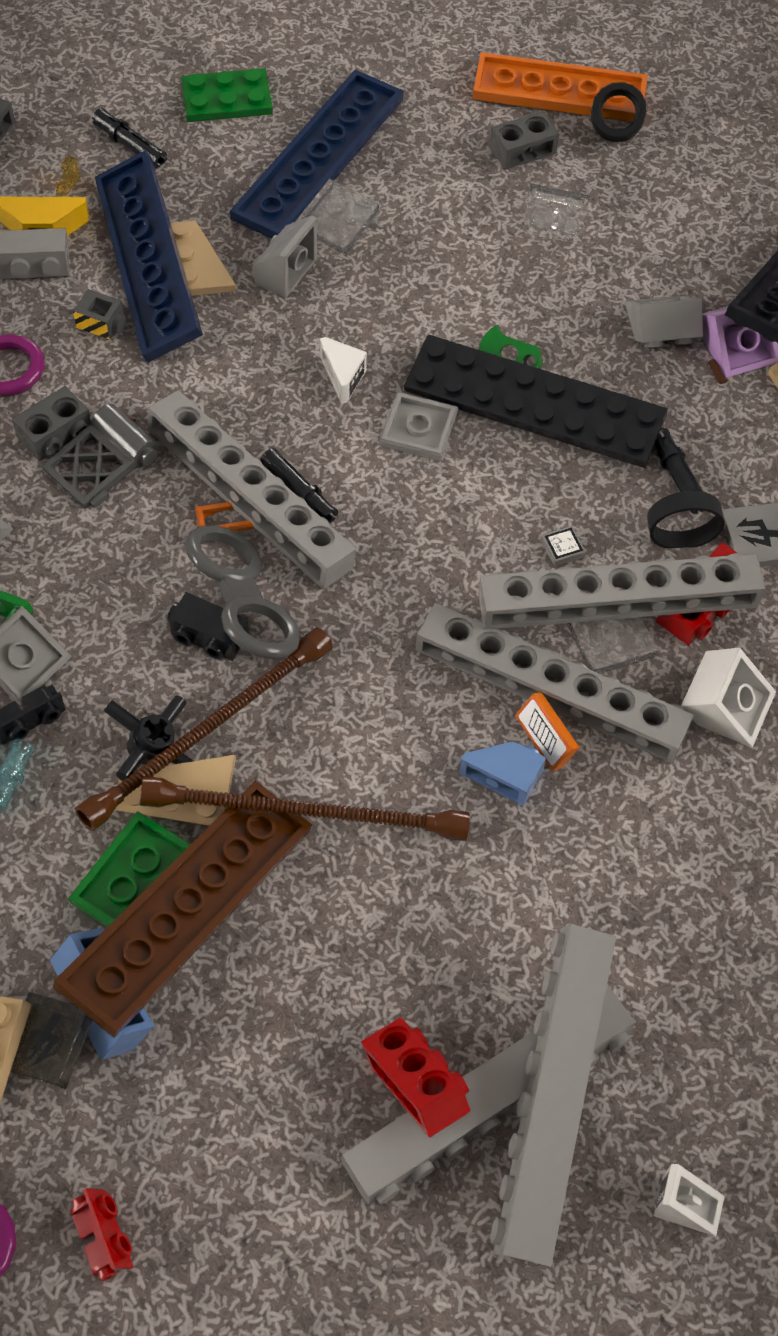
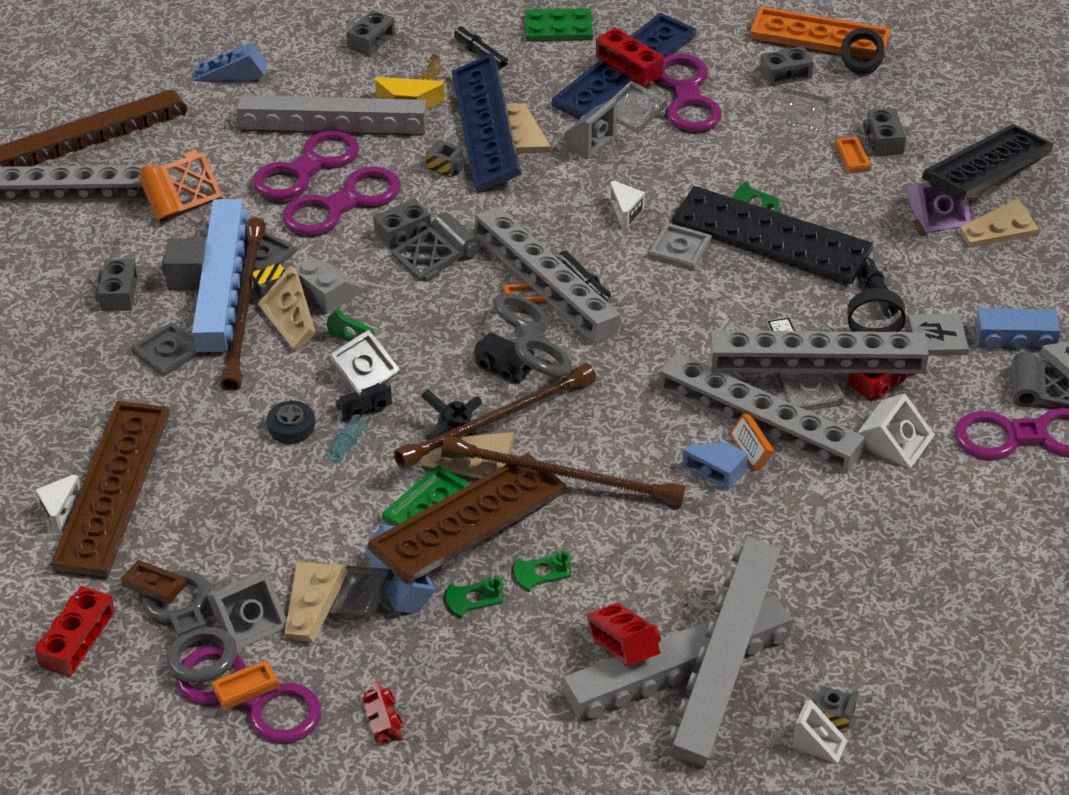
camera: 10 degrees right, 15 degrees down
(183, 1017) = (457, 596): none -> green piece
(276, 979) = (527, 578): none -> green piece
(324, 142) = (629, 56): none -> red brick
(403, 188) = (689, 94): none -> magenta bar
(621, 267) = (852, 155): none -> orange tile
(659, 231) = (884, 132): none -> dark grey brick
(665, 319) = (881, 188): light grey slope -> none
(711, 1166) = (836, 706): none -> dark grey brick

